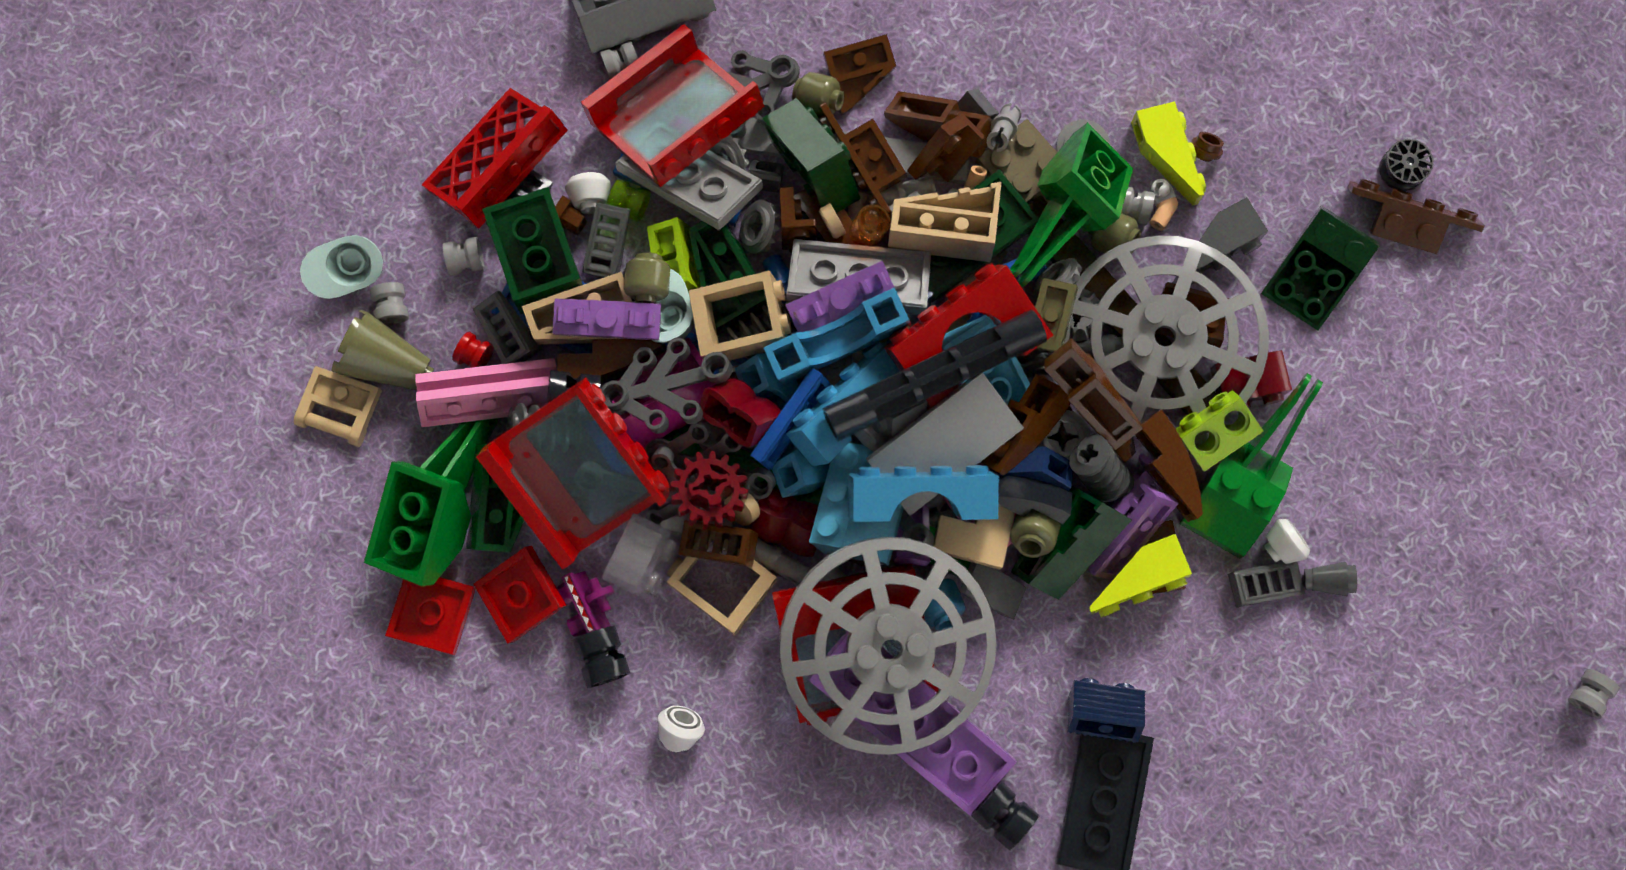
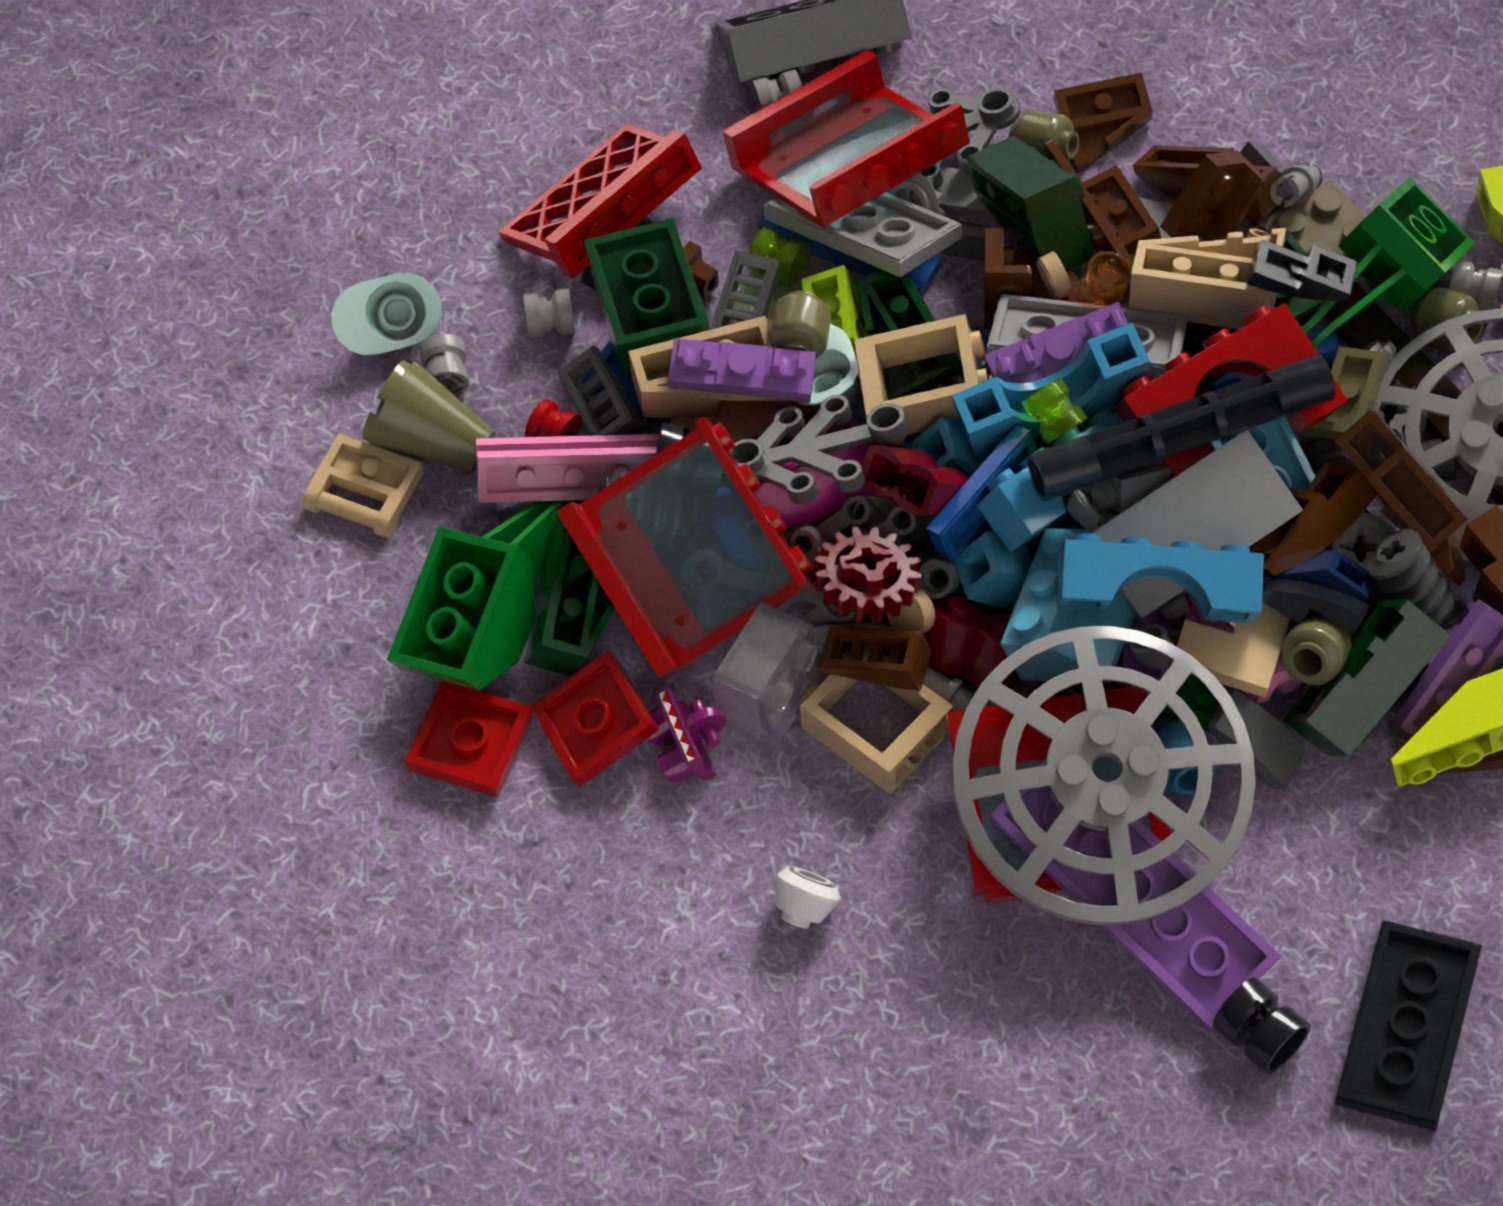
camera: 10 degrees right, 20 degrees down
(587, 190) = (720, 238): white cone -> none
(601, 656) = (701, 801): black wheel -> none
(758, 214) = (955, 289): light grey gear -> none
(840, 359) = (1053, 410): none -> clear neon green wheel
(1015, 227) = (1313, 276): none -> black slope
(1106, 710) = (1412, 899): dark blue brick -> none

